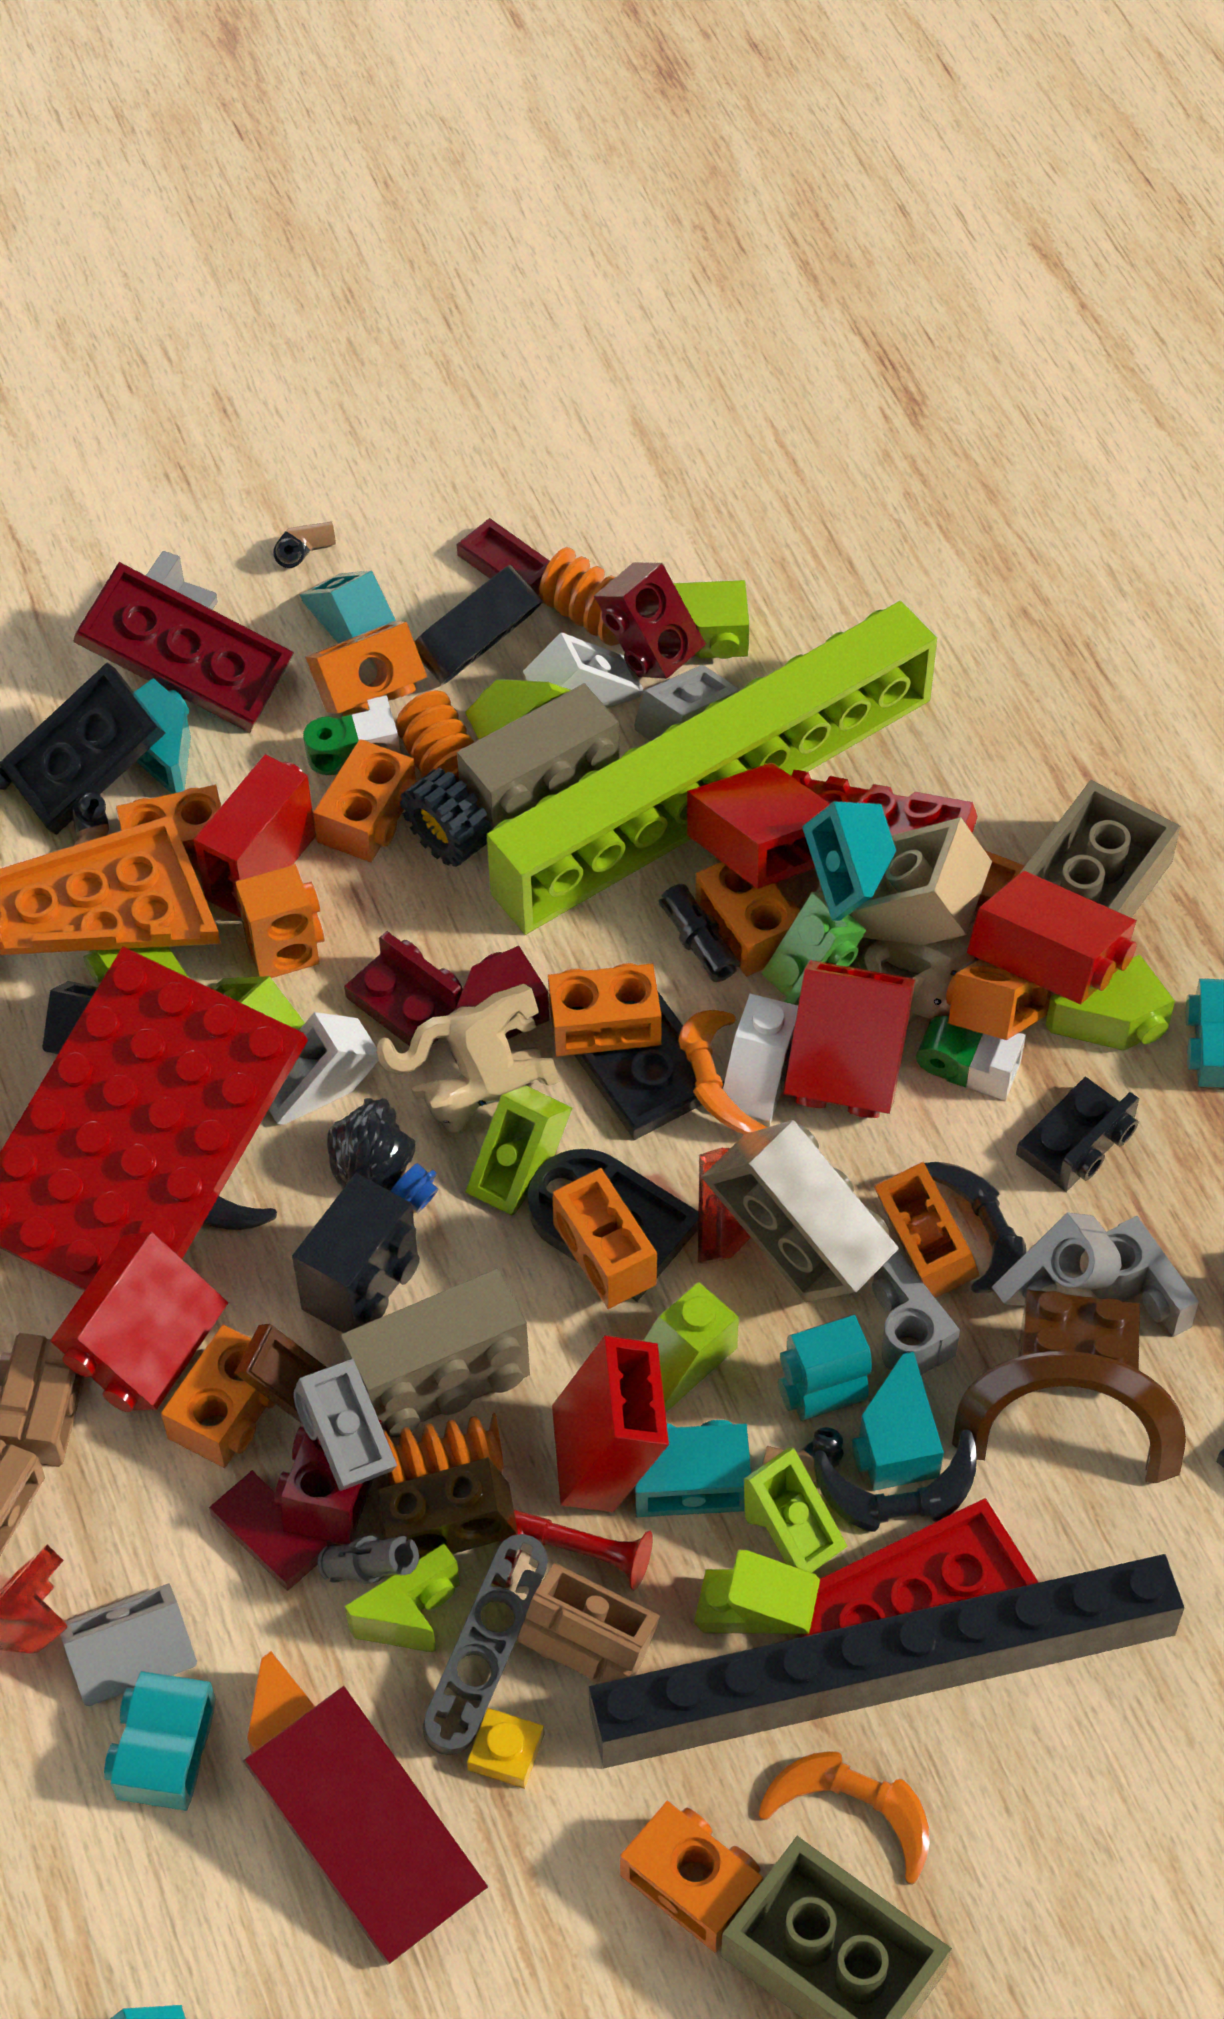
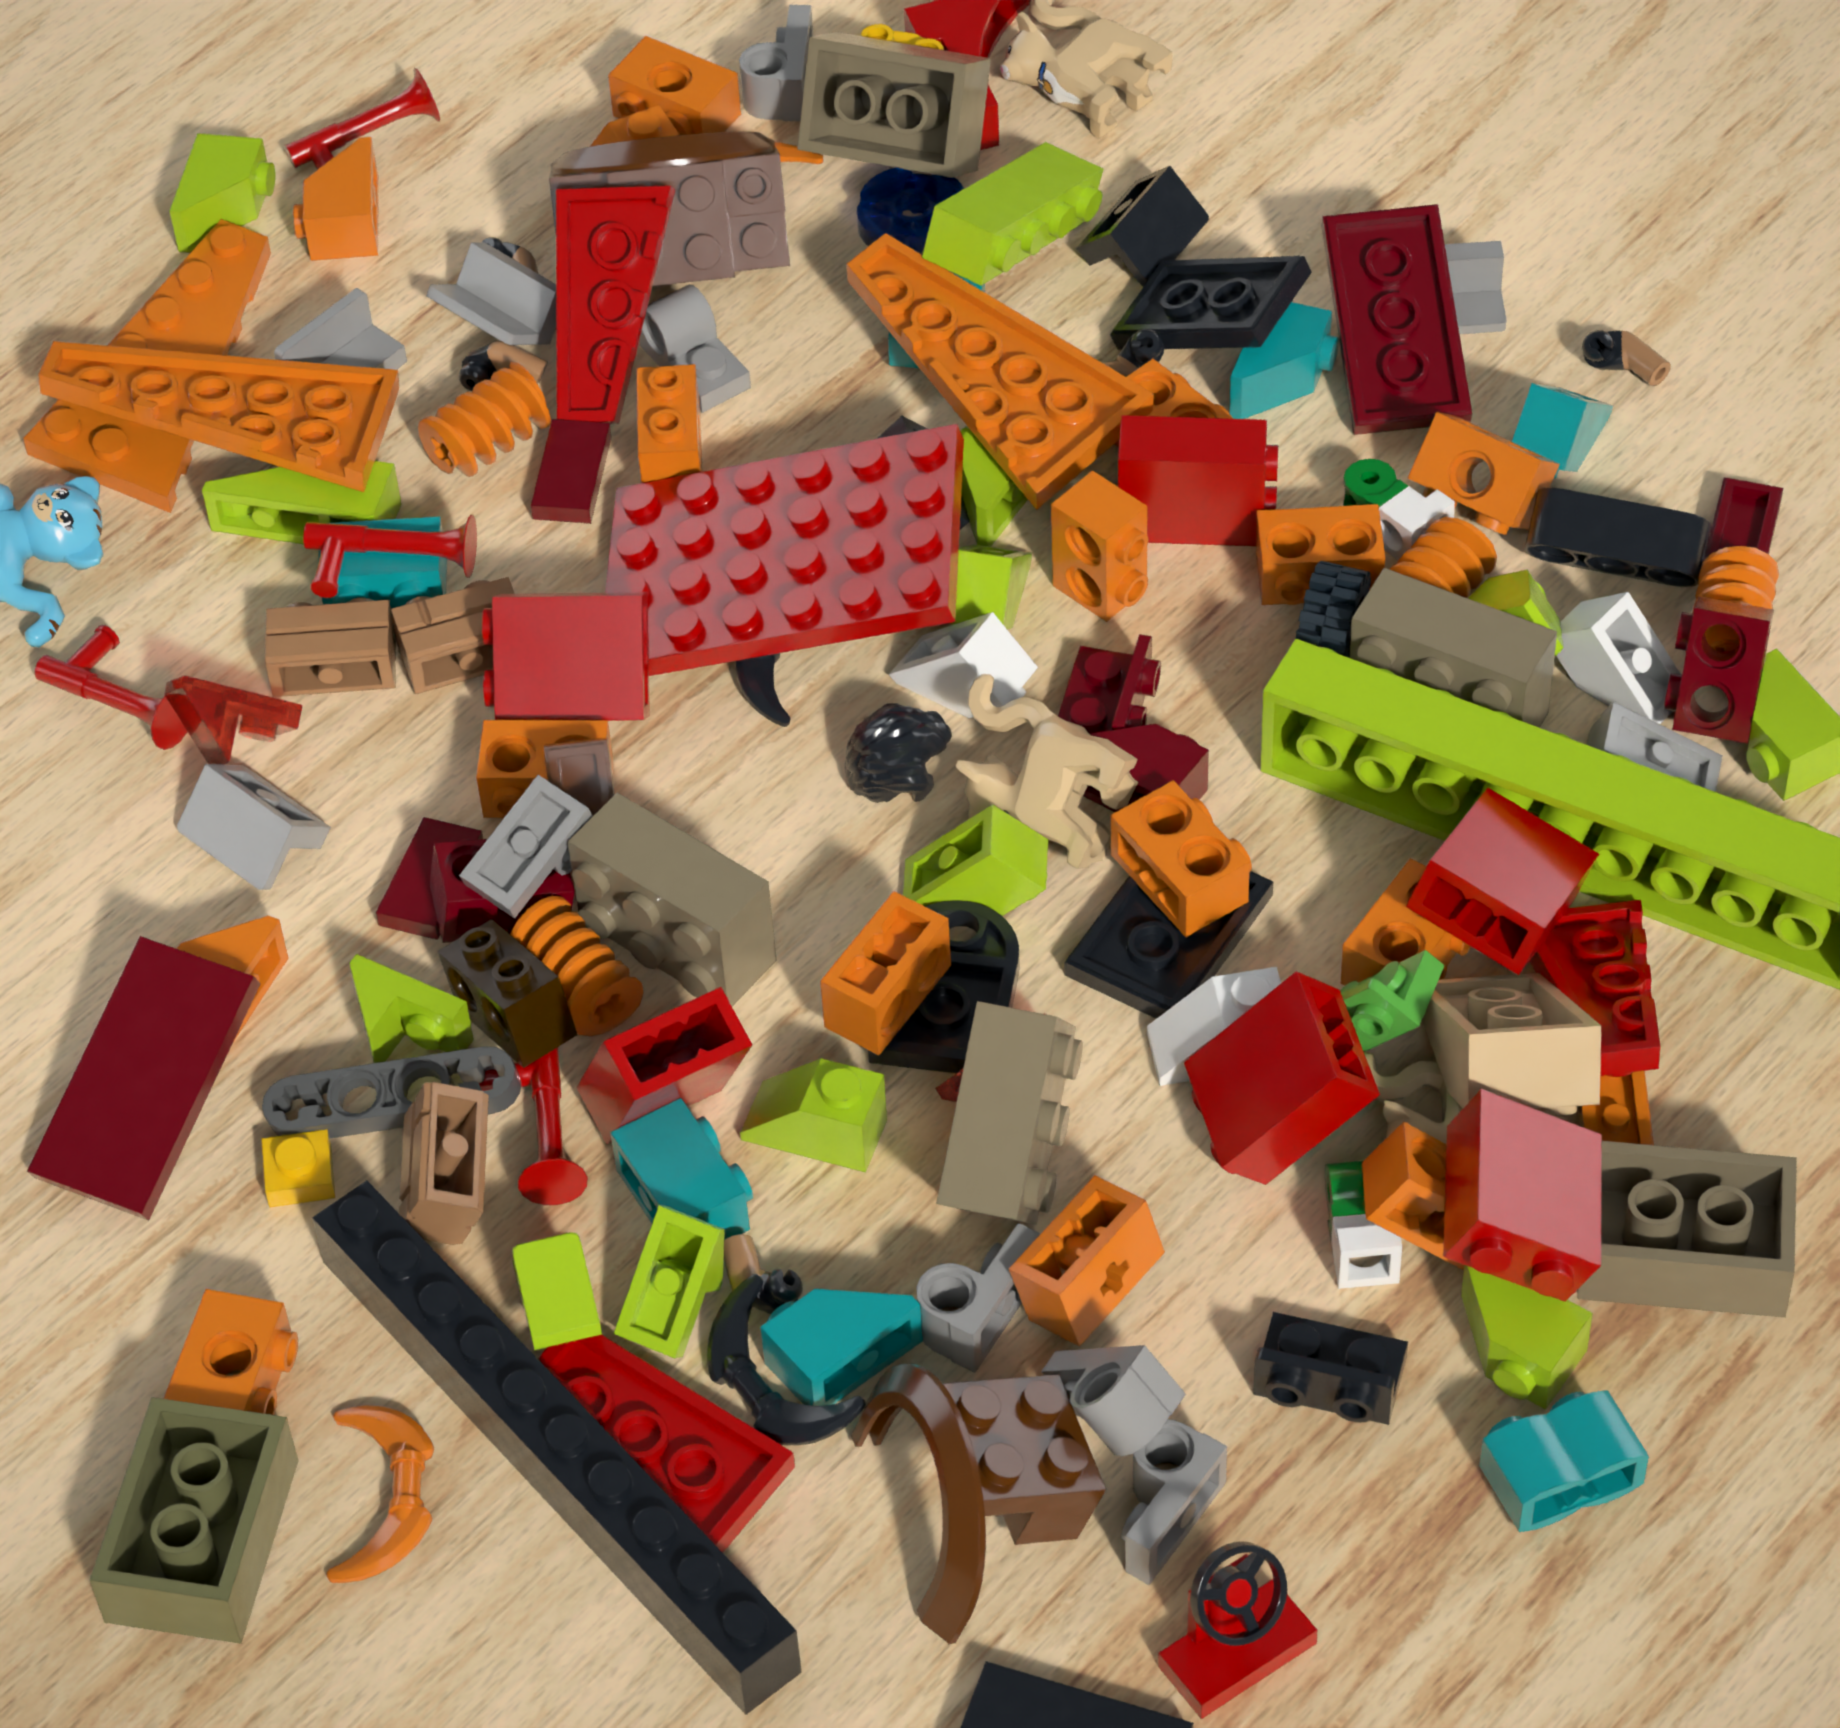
camera: 65 degrees right, 5 degrees down
(162, 1740) = (162, 893): teal brick -> none
(356, 1256) = (747, 785): black brick -> none
(368, 1559) = (407, 961): dark grey pin -> none
(416, 1187) = (875, 811): blue plate -> none
(696, 1042) = (1144, 999): orange piece -> none
(699, 932) = (1370, 882): black pin -> none
(825, 1368) = (852, 1231): teal brick -> none
(850, 853) = (1488, 951): teal slope -> none
(1005, 1244) = (1188, 1302): black piece -> none

